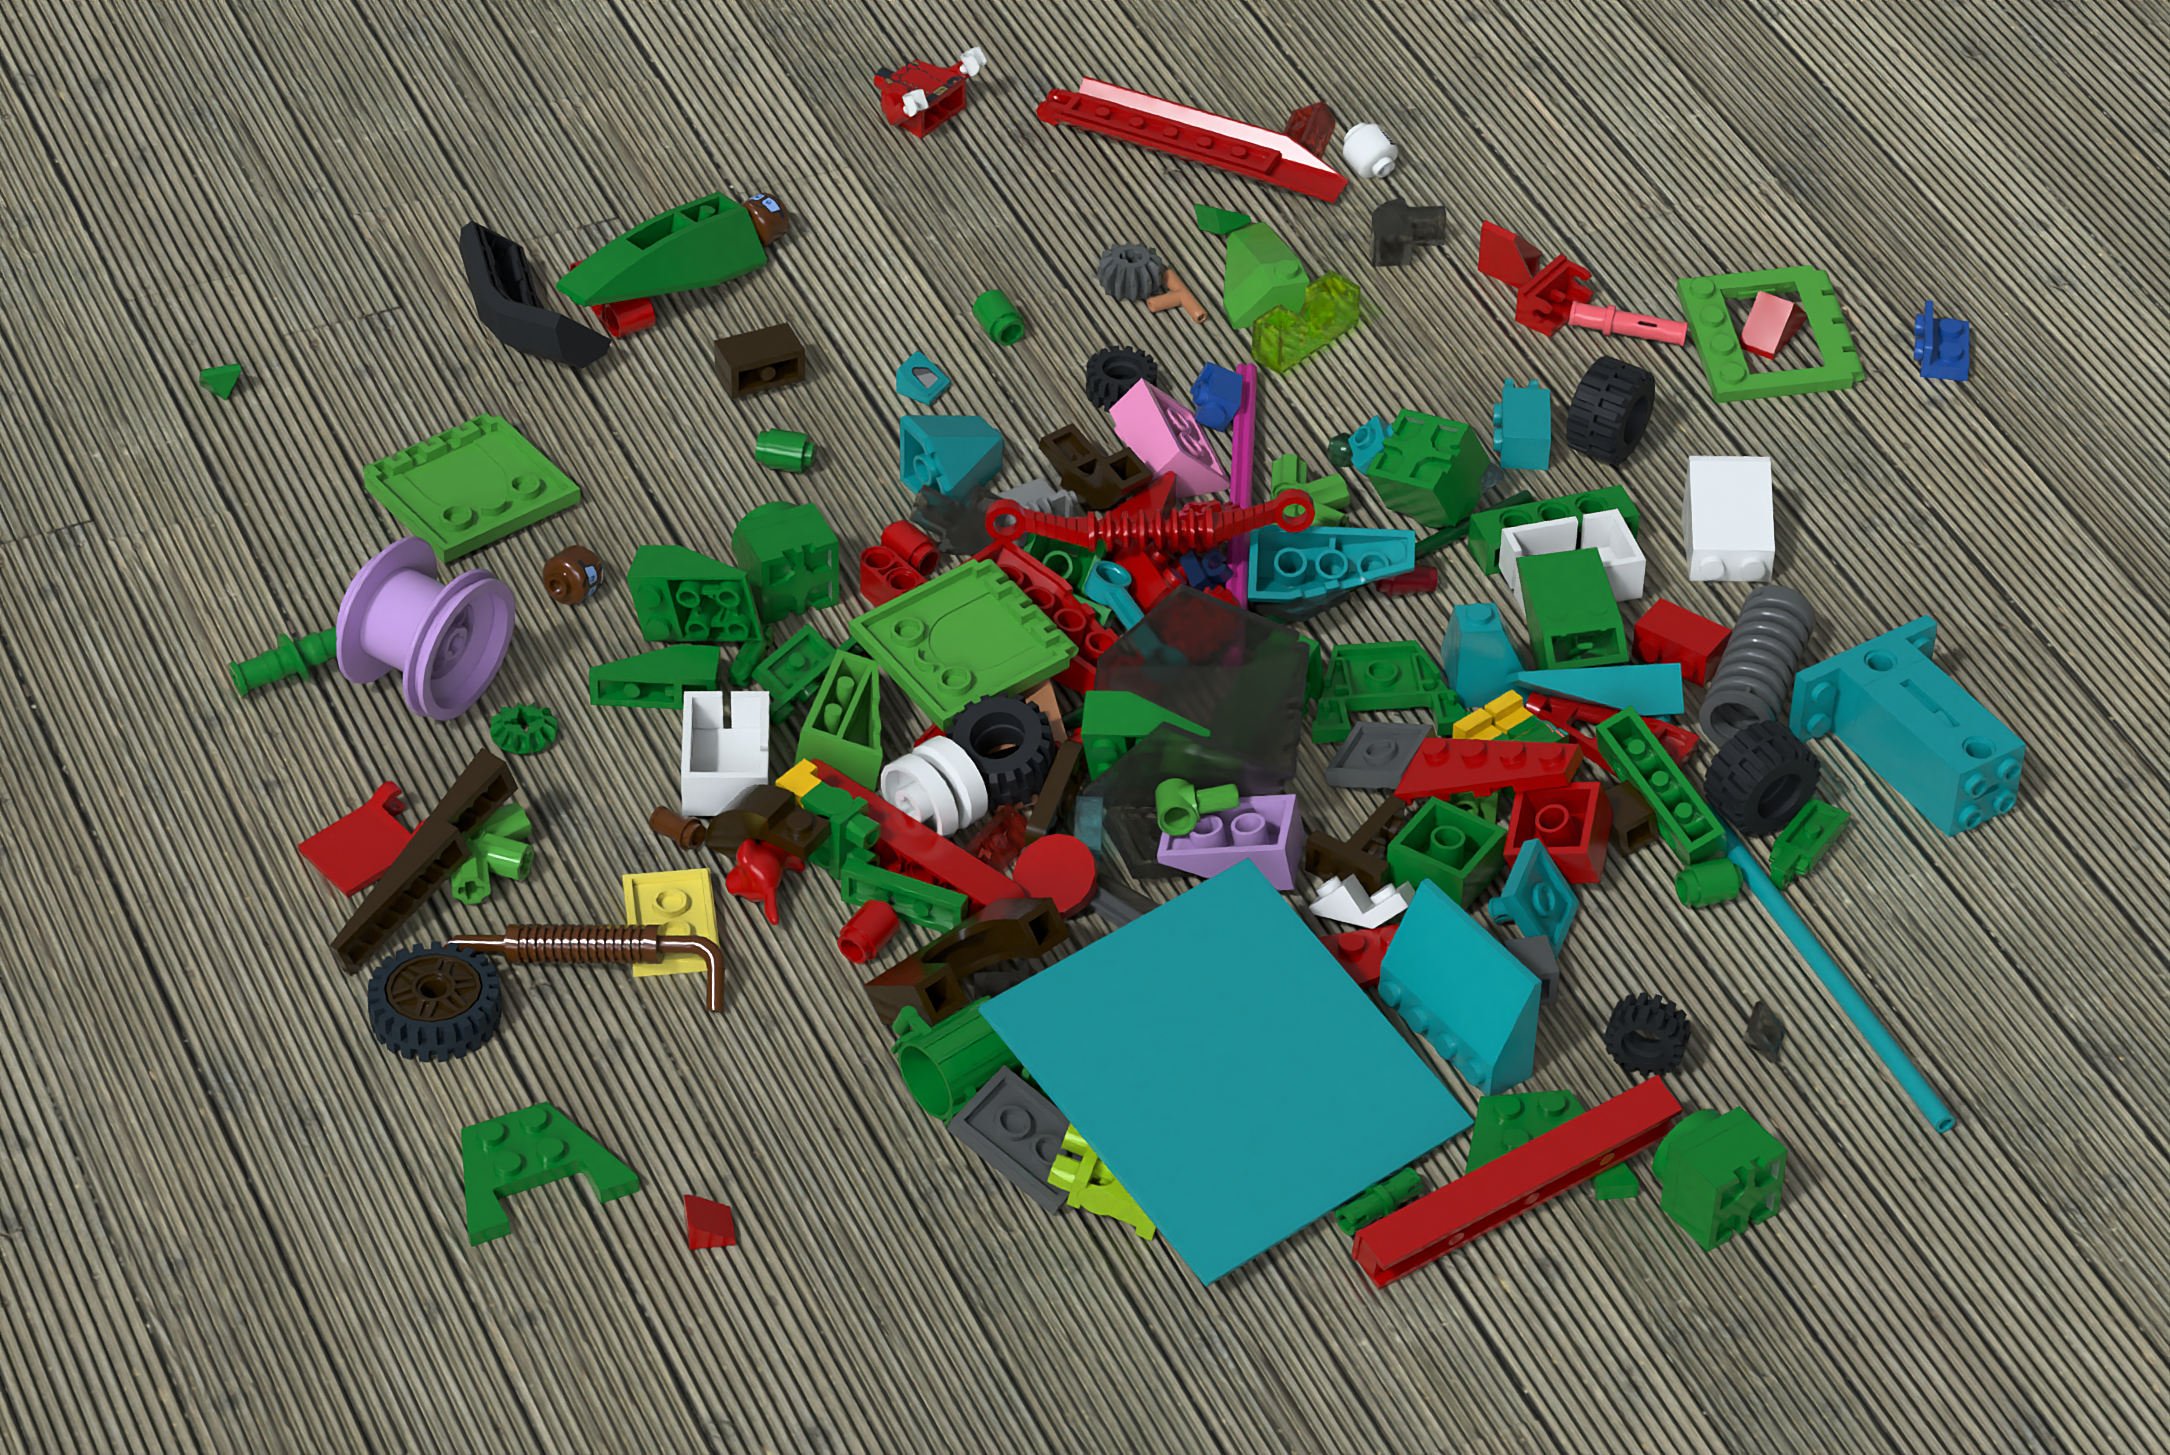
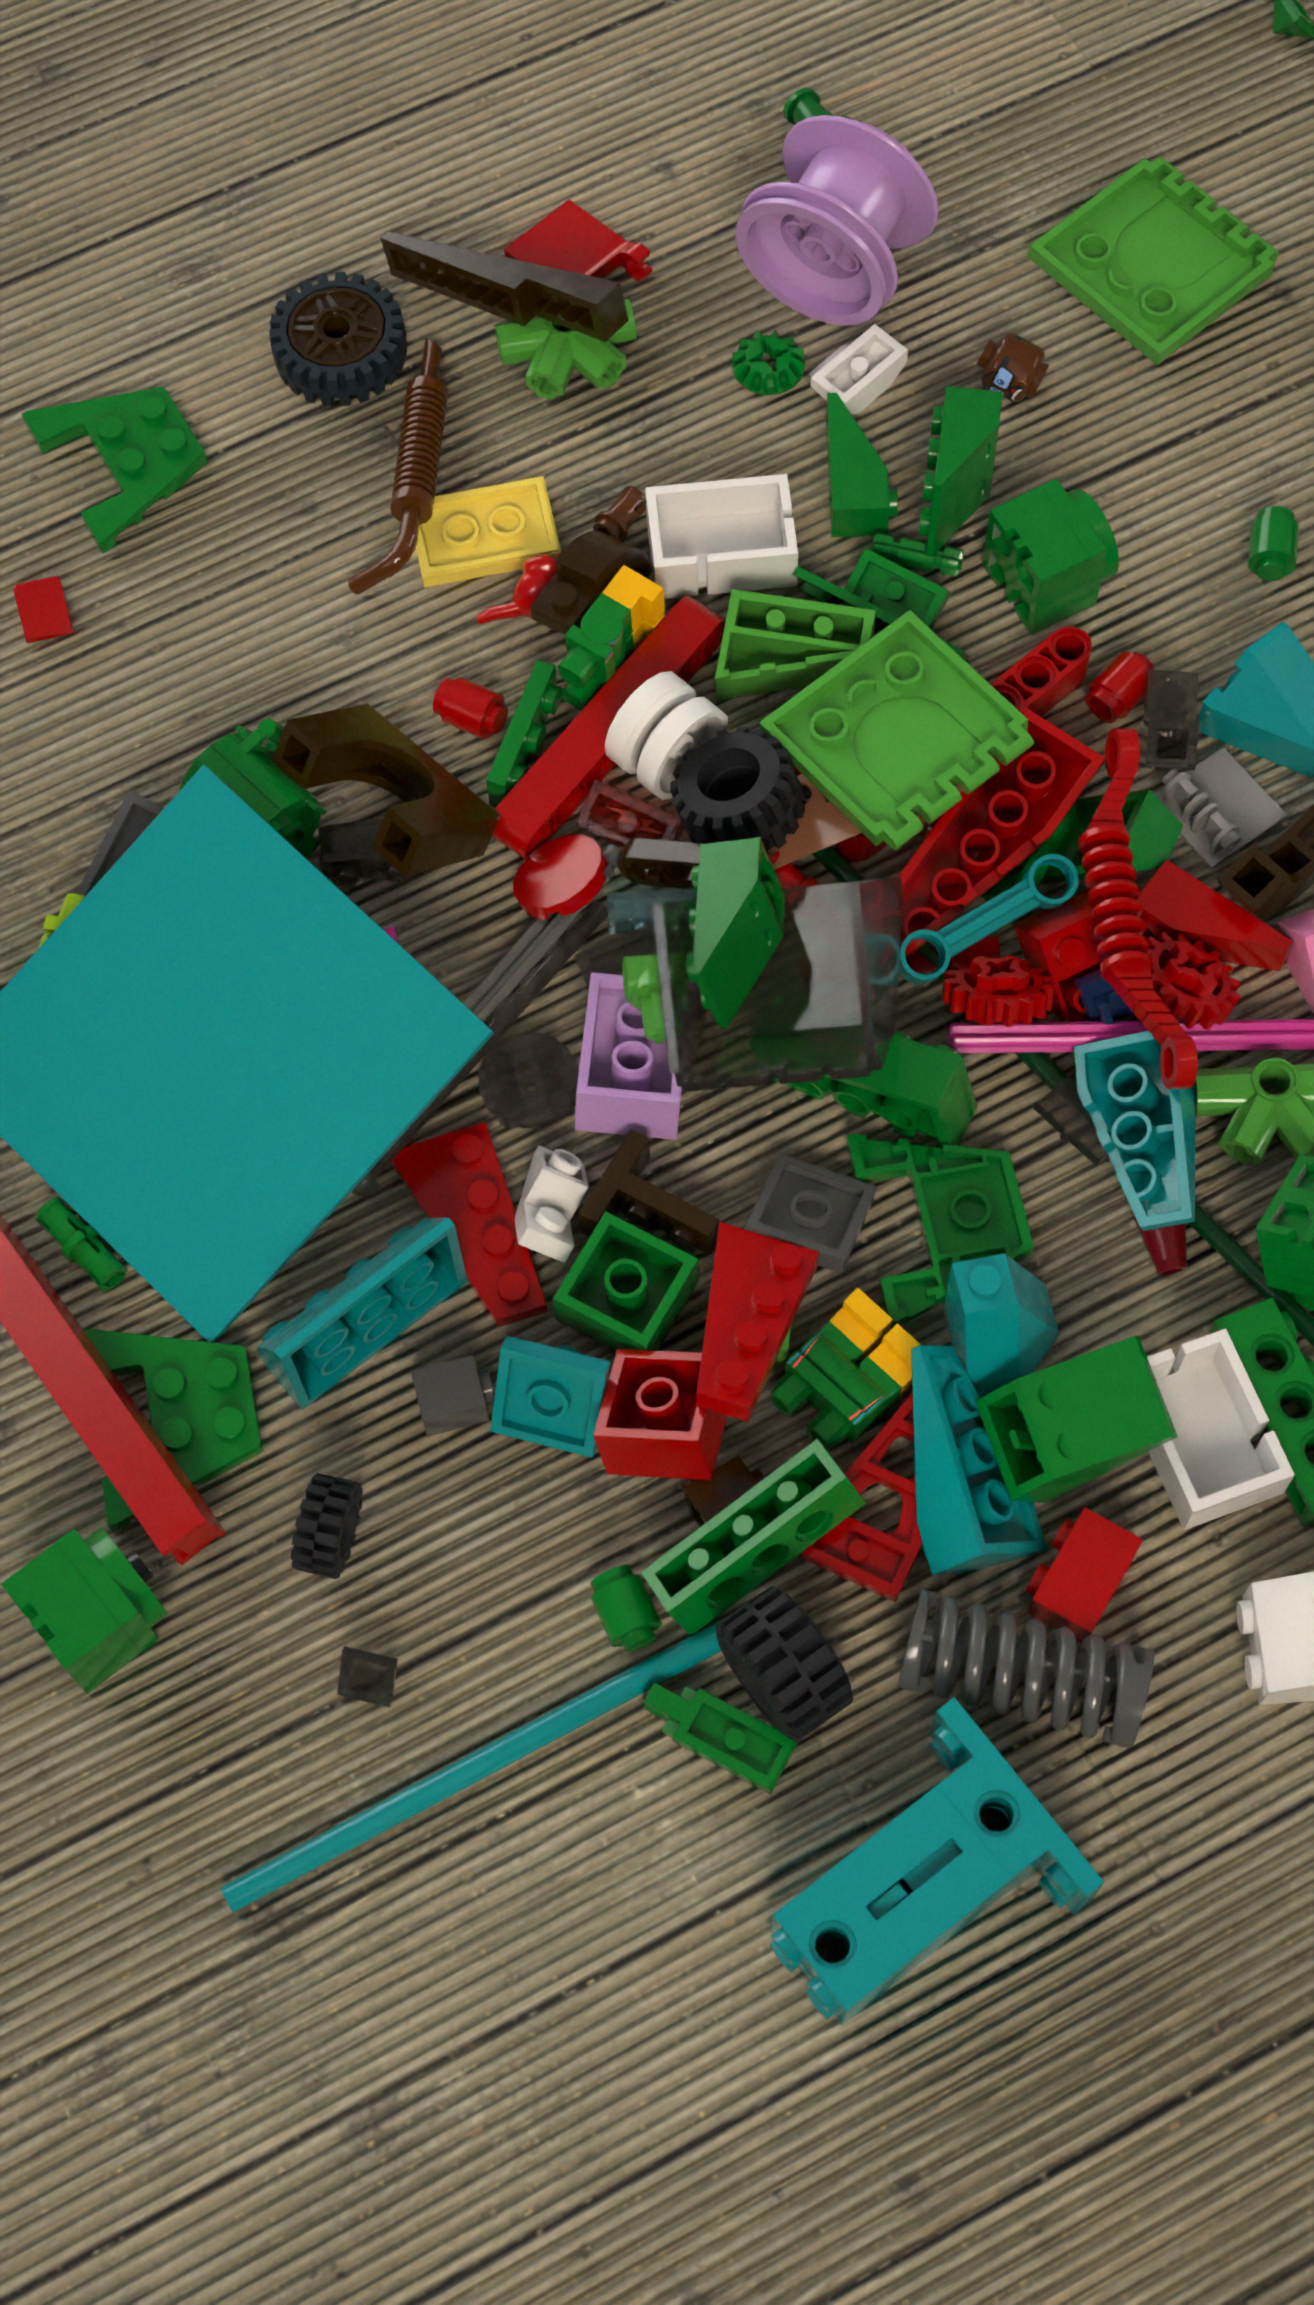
camera: 90 degrees right, 25 degrees up
(547, 669) = (860, 369): none -> white slope

